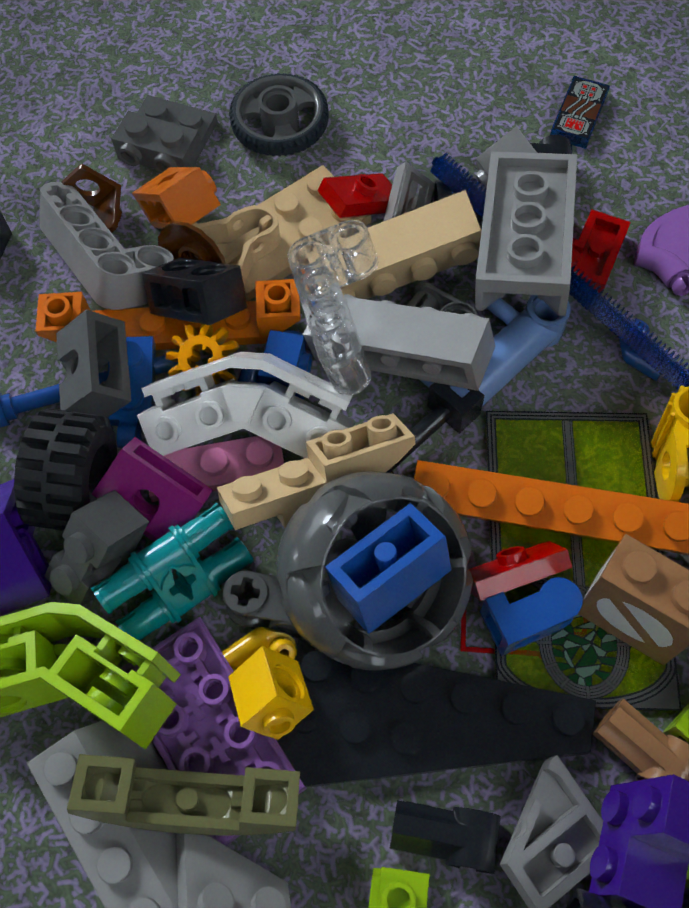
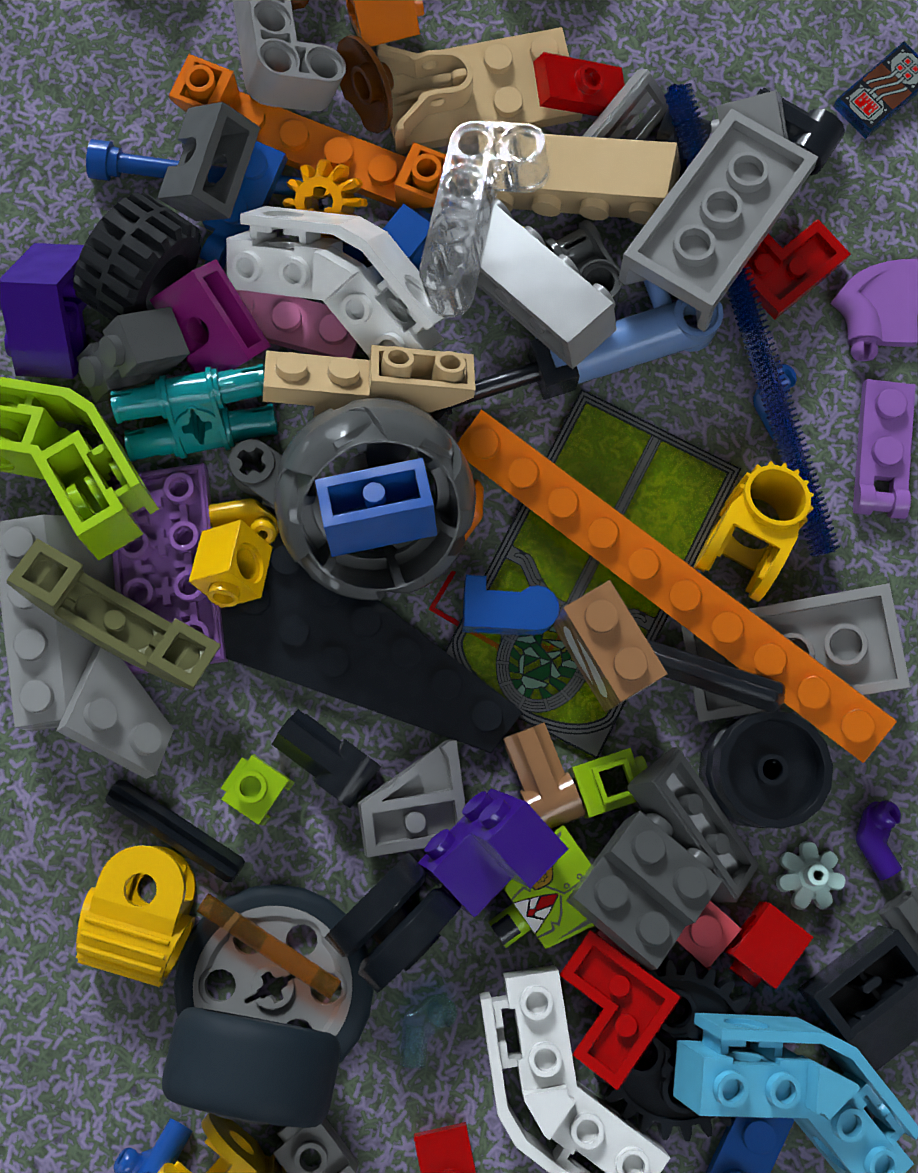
camera: 20 degrees right, 15 degrees up
(195, 290) = (347, 124): black brick -> none
(518, 568) = (514, 560): red plate -> none

